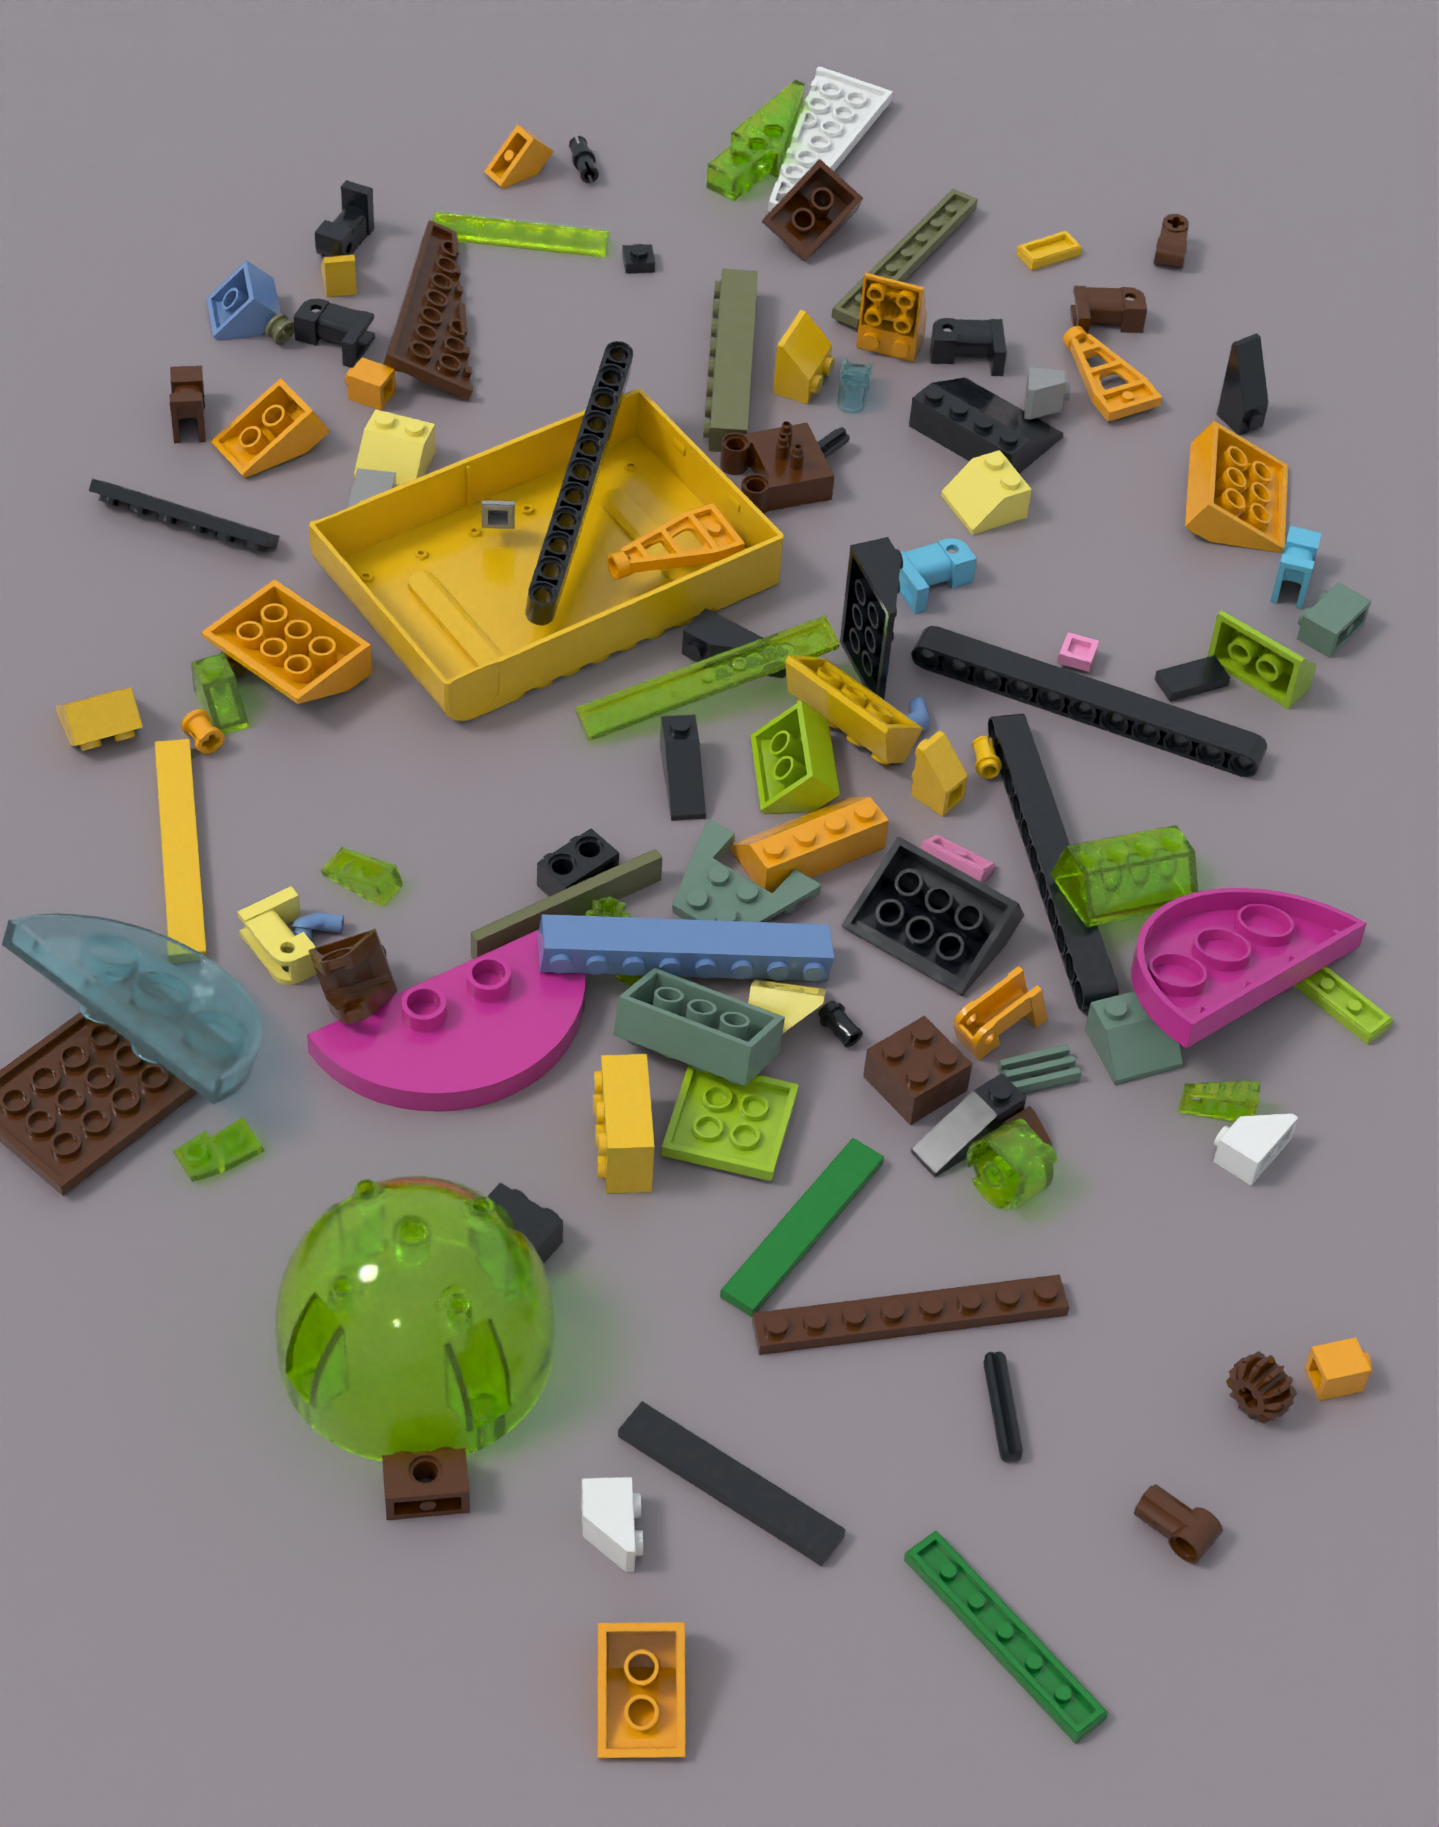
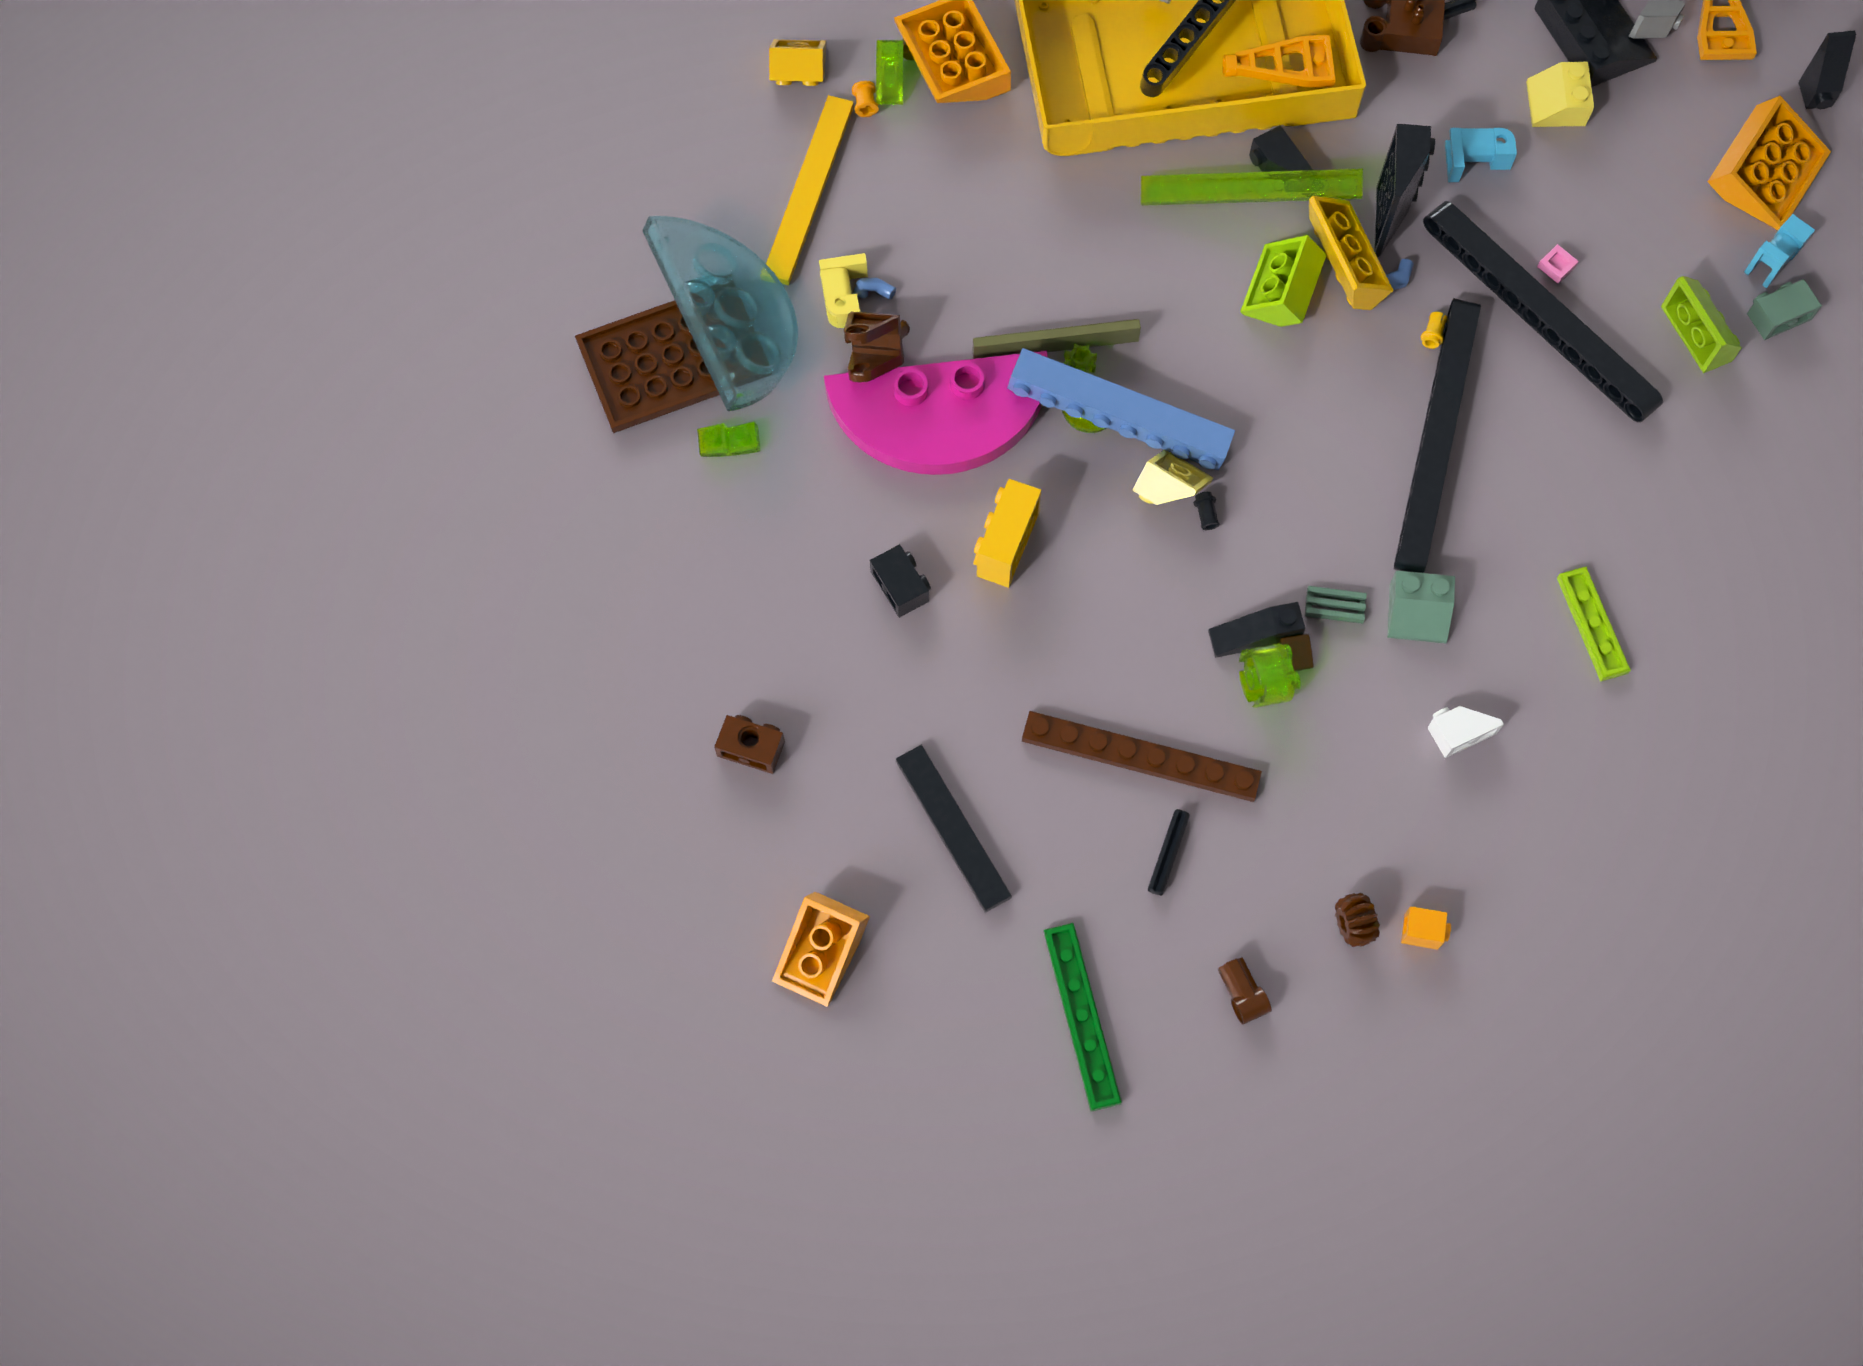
camera: 30 degrees right, 20 degrees up
(378, 890) = (932, 273): clear neon green slope -> none
(418, 1334) = (751, 642): clear neon green piece -> none
(575, 862) = (1075, 305): black brick -> none
(609, 1518) = (858, 819): white slope -> none
(682, 767) = (1197, 255): black slope -> none
(698, 1026) = (1097, 477): sand green brick -> none
(722, 894) = (1174, 378): sand green wing -> none
(730, 1123) = (1088, 556): lime plate -> none
(801, 1227) = (1099, 658): green tile -> none
(813, 842) = (1262, 354): light orange slope -> none
(917, 1070) = (1242, 571): reddish brown brick -> none
(933, 916) = (1319, 451): black slope -> none
(938, 775) = (1385, 334): yellow slope -> none
(959, 857) = (1363, 410): bright pink slope -> none
(996, 1011) = (1324, 549): light orange piece -> none
(1126, 874) = (1485, 476): clear neon green slope -> none
(1192, 678) = (1638, 319): black tile -> none
(1221, 1099) = (1458, 685): clear neon green slope -> none
(1231, 951) = (1526, 570): dark pink plate -> none

